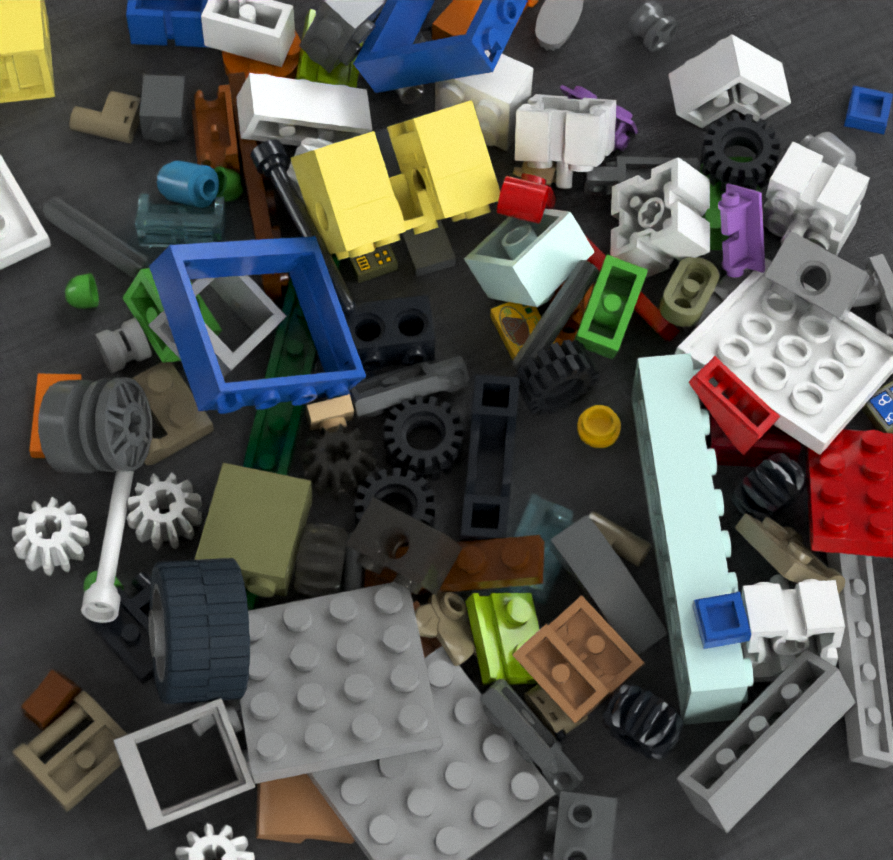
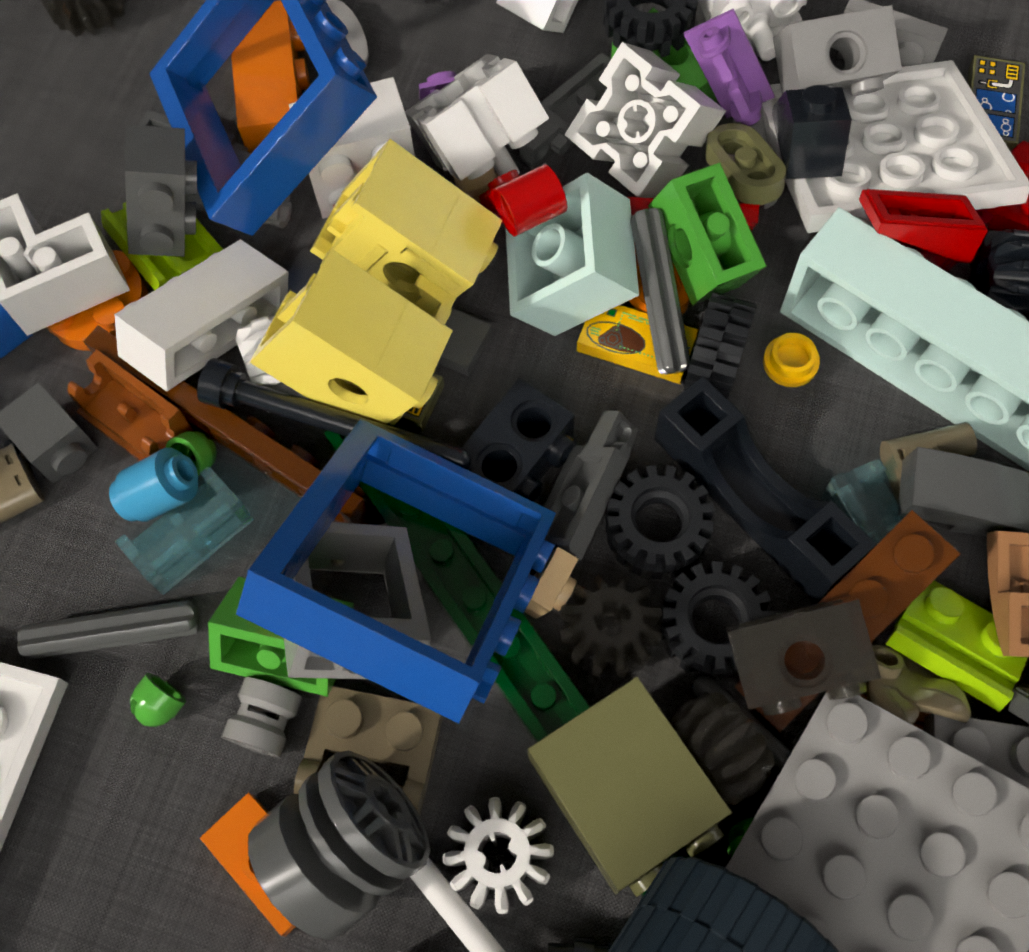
camera: 40 degrees left, 5 degrees up
(736, 304) = (812, 131): none -> black slope

